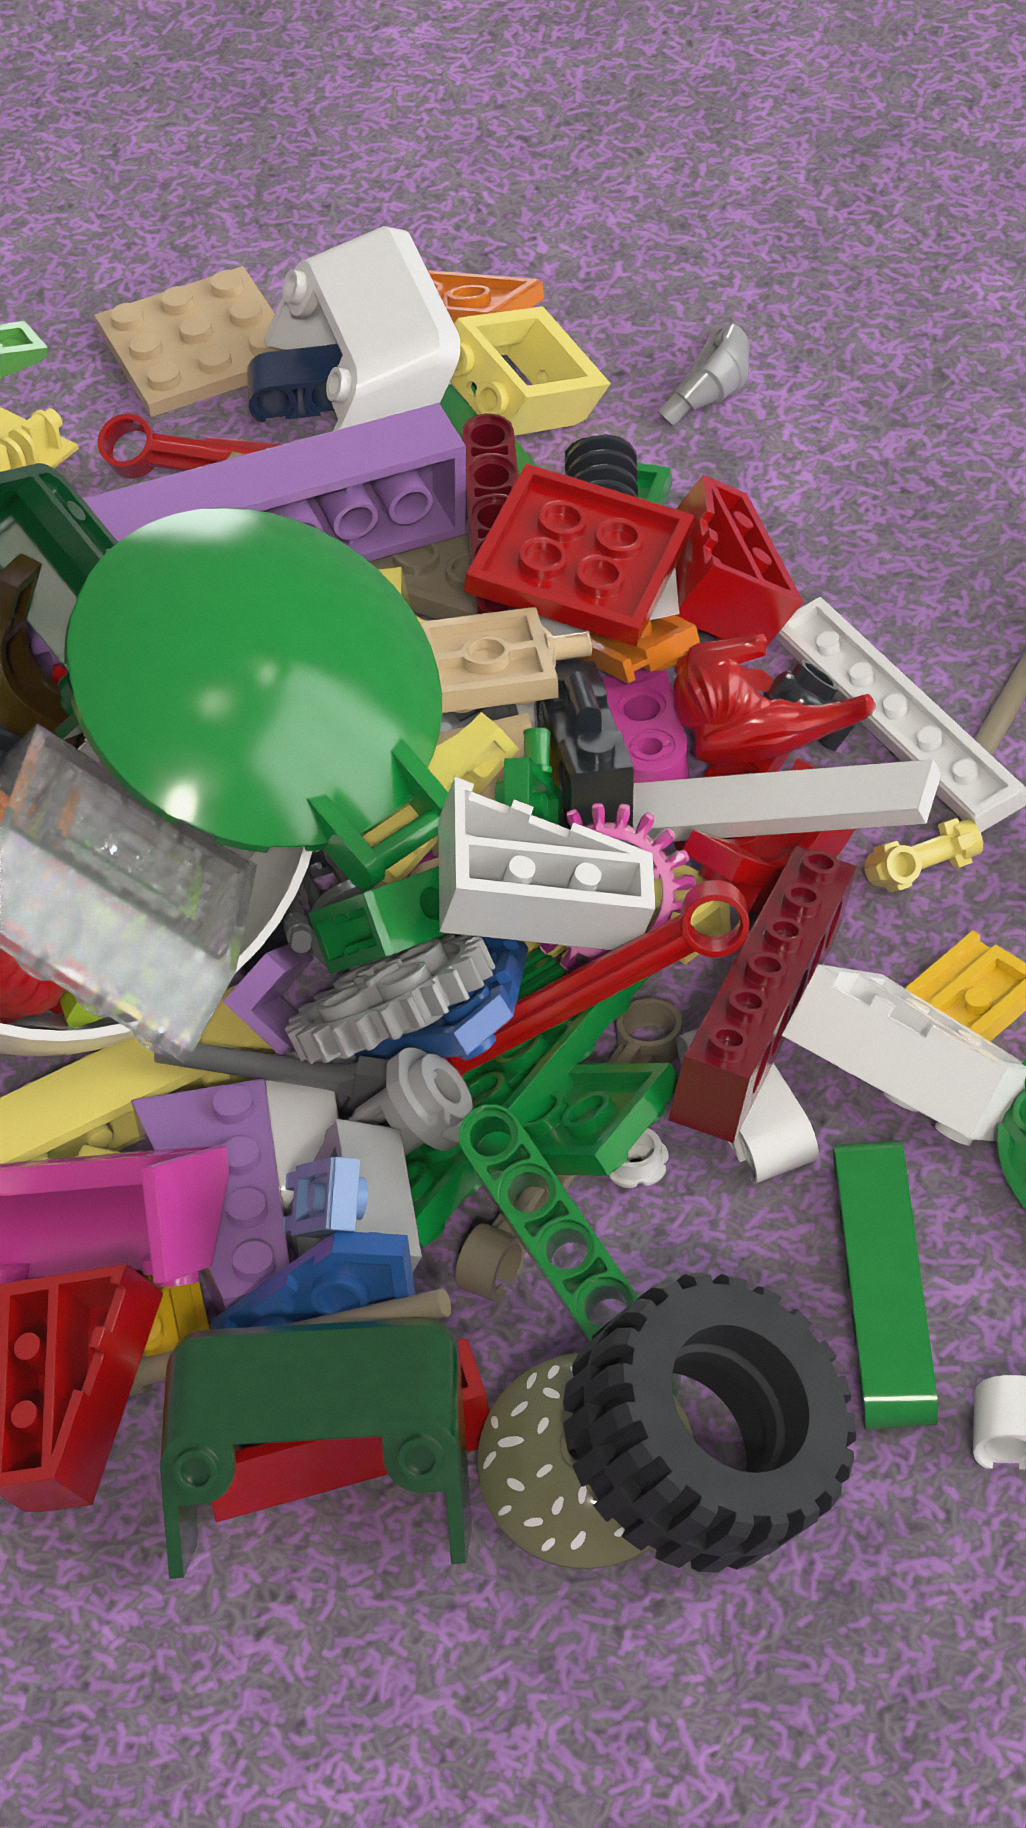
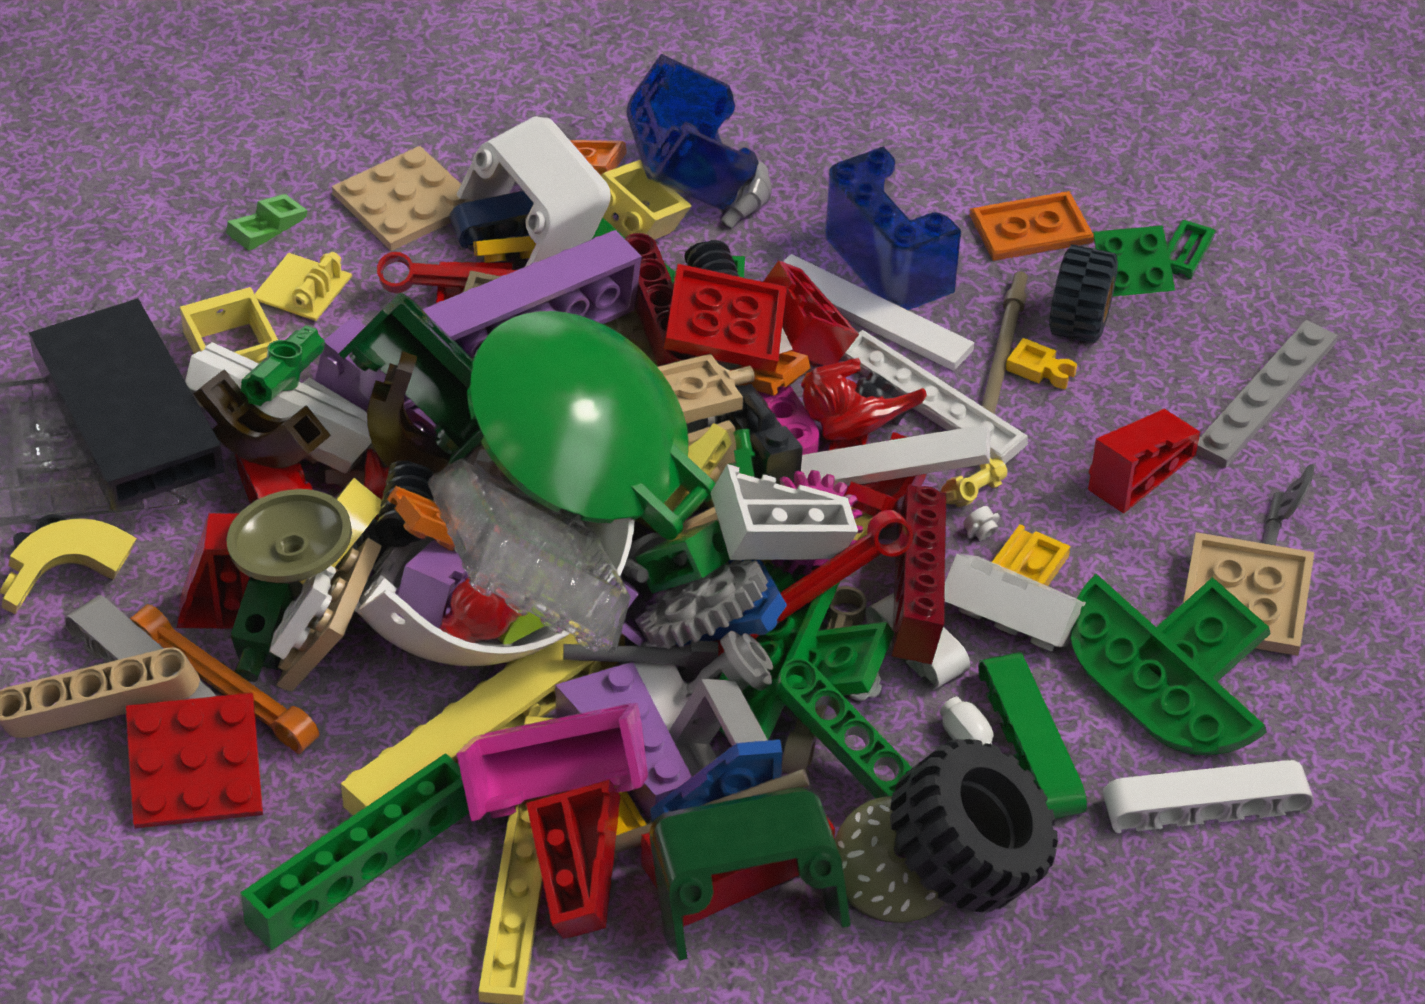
camera: 20 degrees left, 0 degrees up
(295, 423) = (495, 249): none -> yellow plate
(326, 1197) = (715, 725): medium blue hinge -> none
(624, 272) = (677, 135): none -> clear blue windscreen
(783, 1256) = (965, 721): none -> white plant
(867, 581) = (888, 318): none -> white tile
(908, 487) = (889, 252): none -> clear blue windscreen
(914, 922) = (981, 523): none -> white plate

